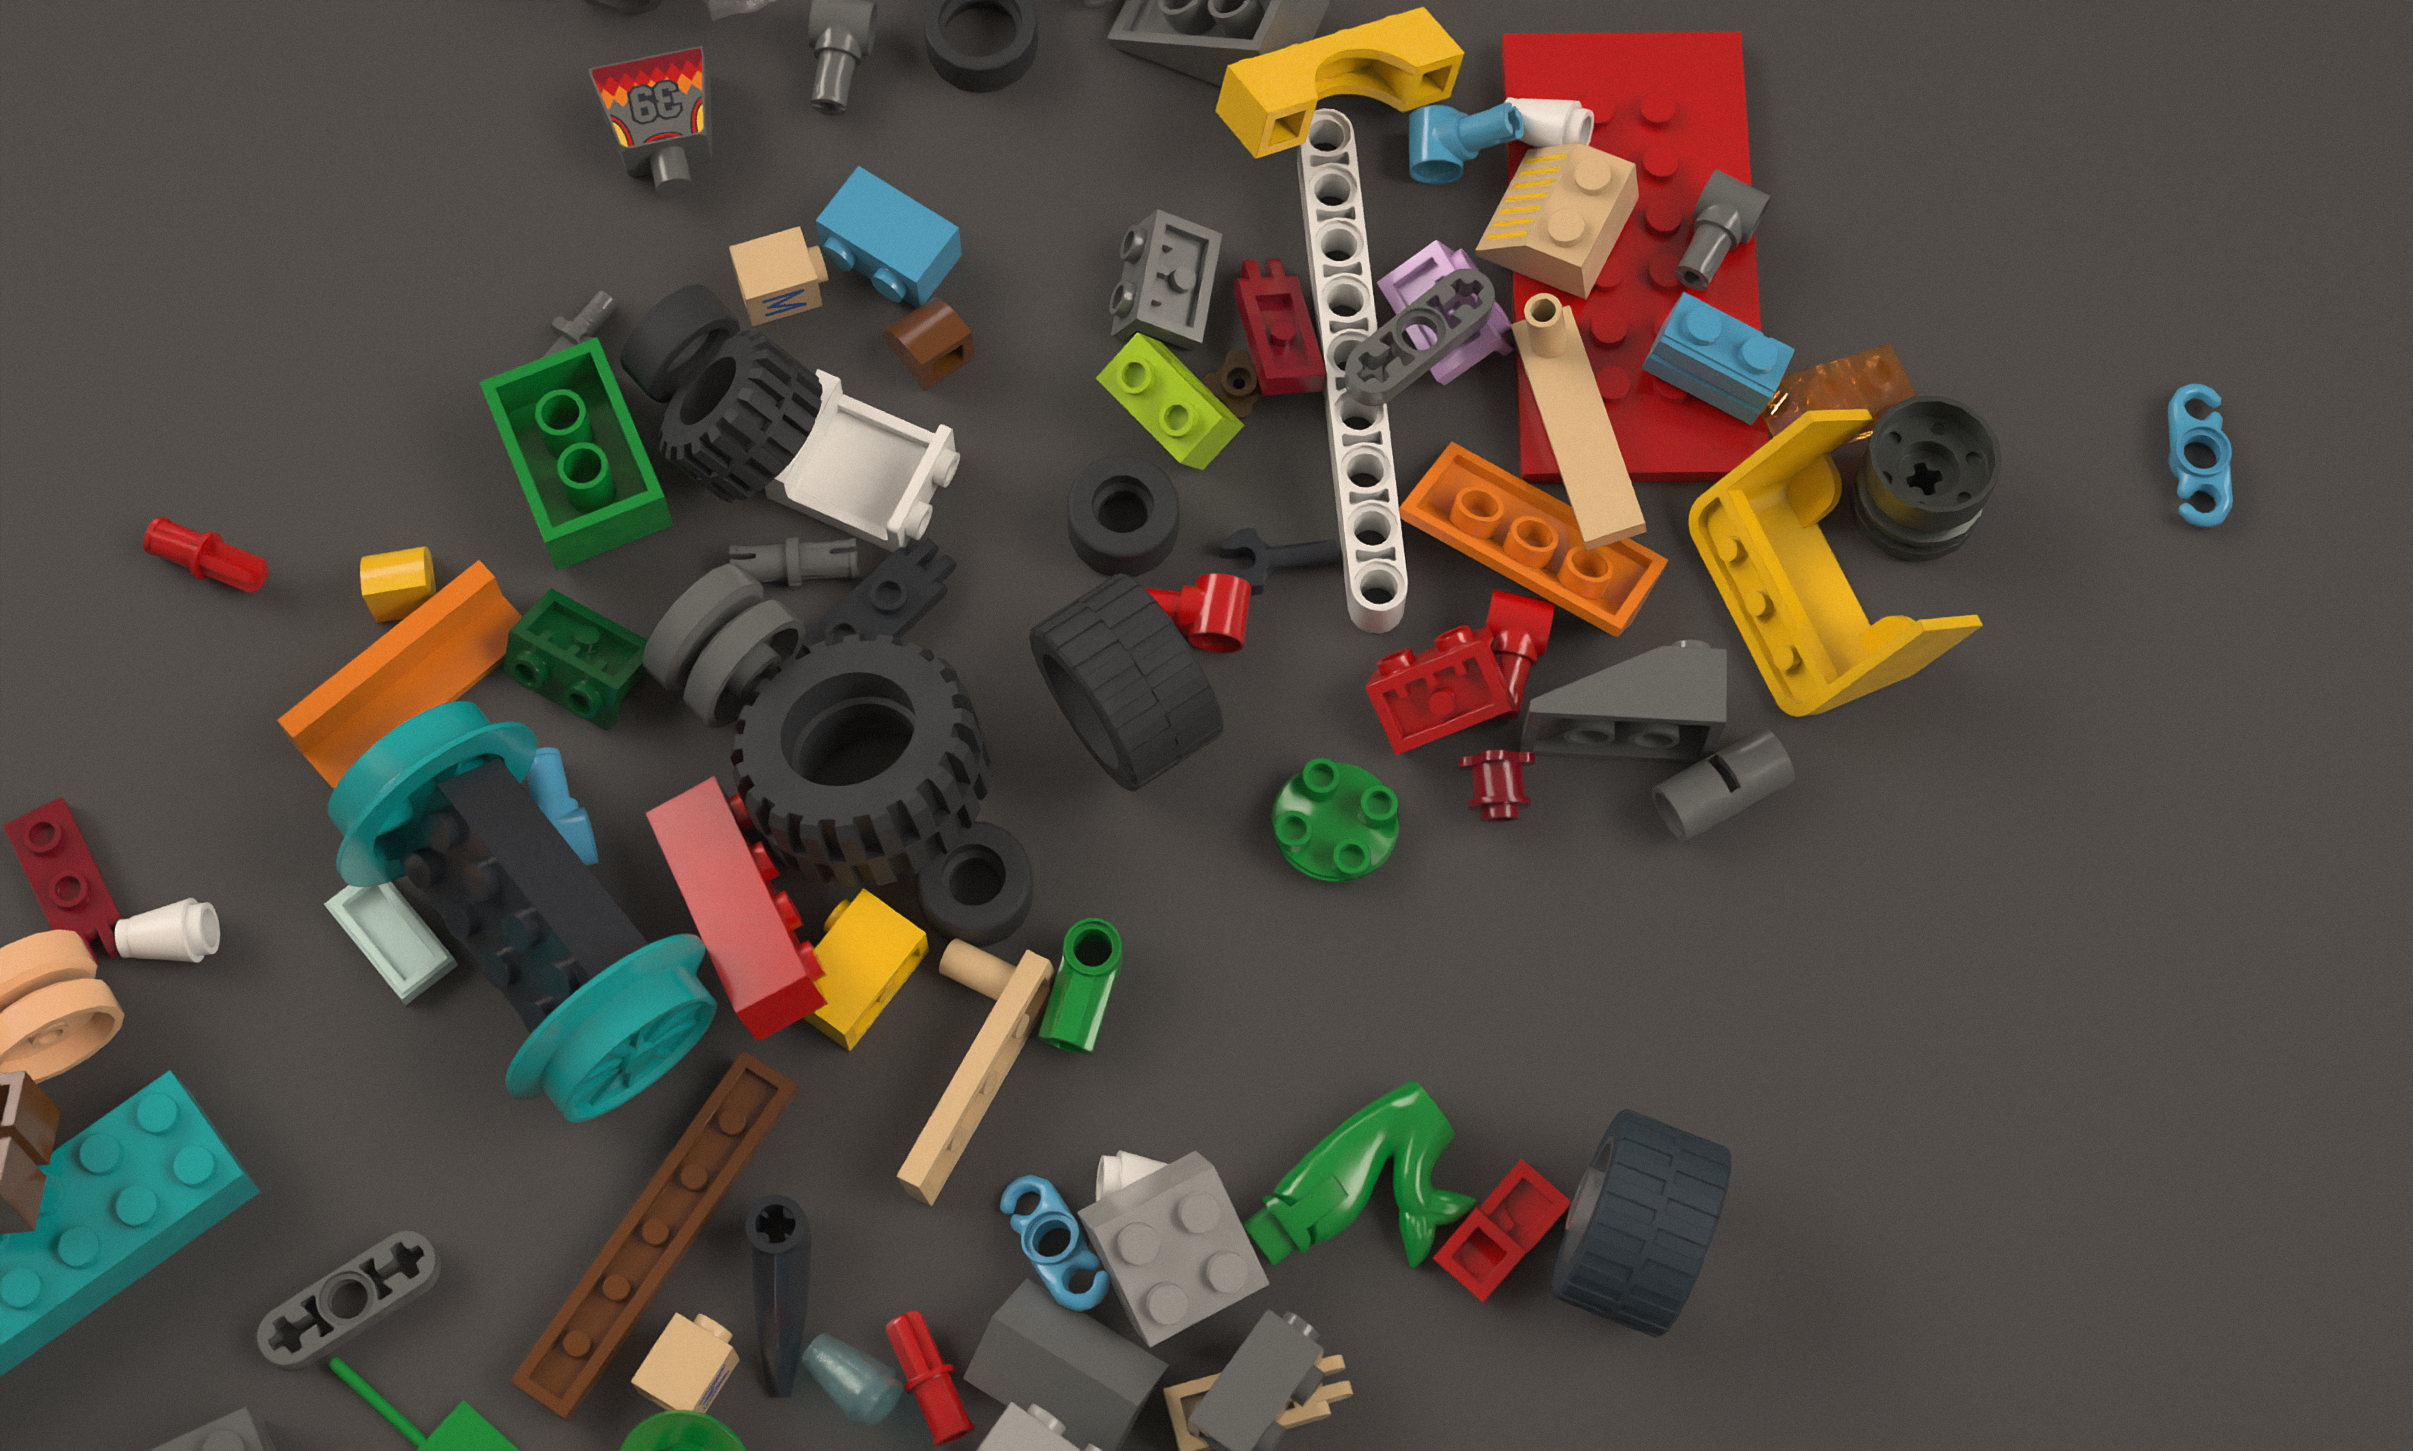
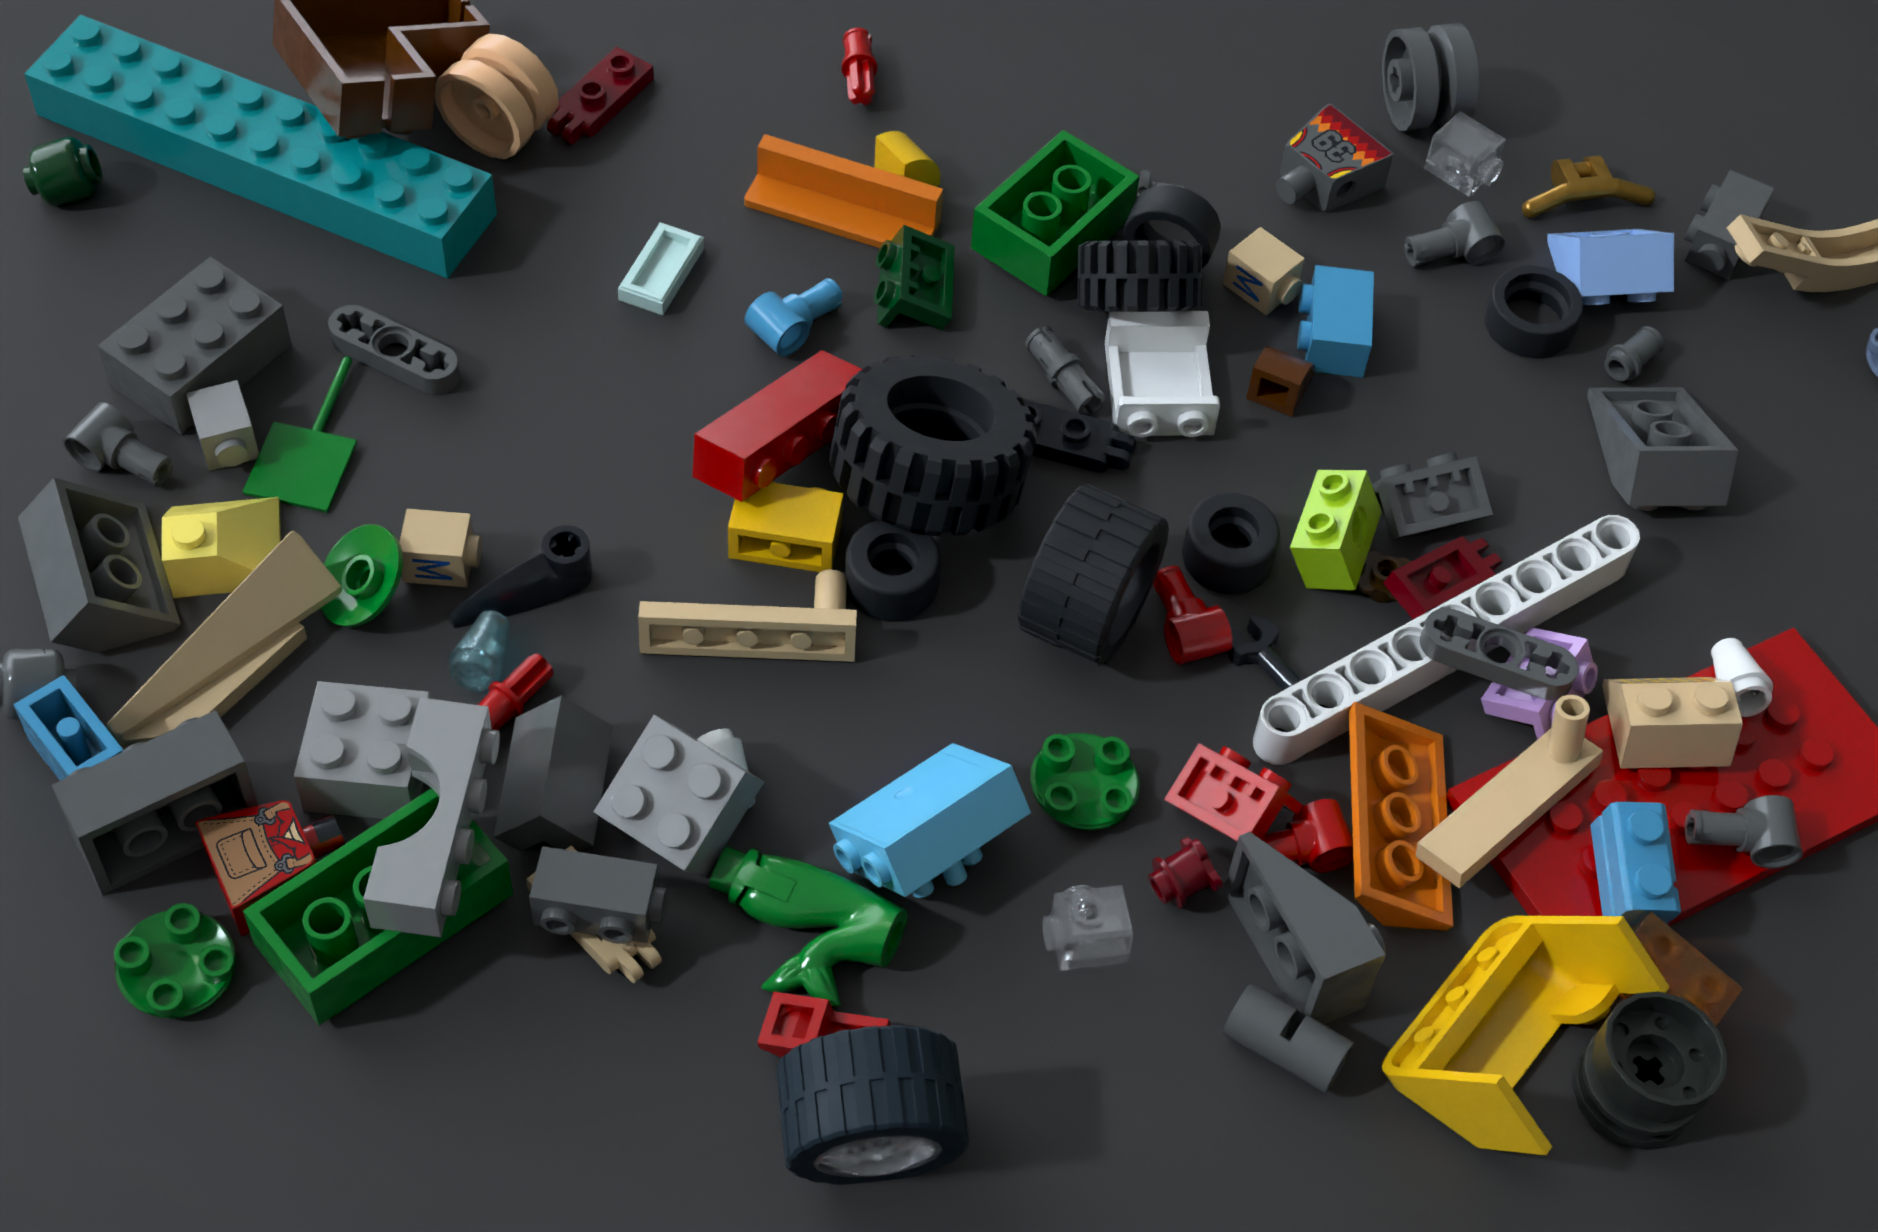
camera: 60 degrees right, 15 degrees down
(173, 933) = (594, 155): white cone -> none
(451, 815) = (656, 365): brick -> none
(654, 1236) = (528, 493): reddish brown plate -> none
(722, 644) = (973, 325): dark grey wheel -> none
(1060, 1269) = (626, 735): dark azure piece -> none
(1081, 991) = (854, 667): green piece -> none
(1327, 1005) = (930, 821): none -> medium azure piece
(1394, 60) = (1708, 554): yellow arch -> none
(1446, 138) = (1680, 622): dark azure pin -> none
(1510, 908) = (1089, 927): none -> clear brick

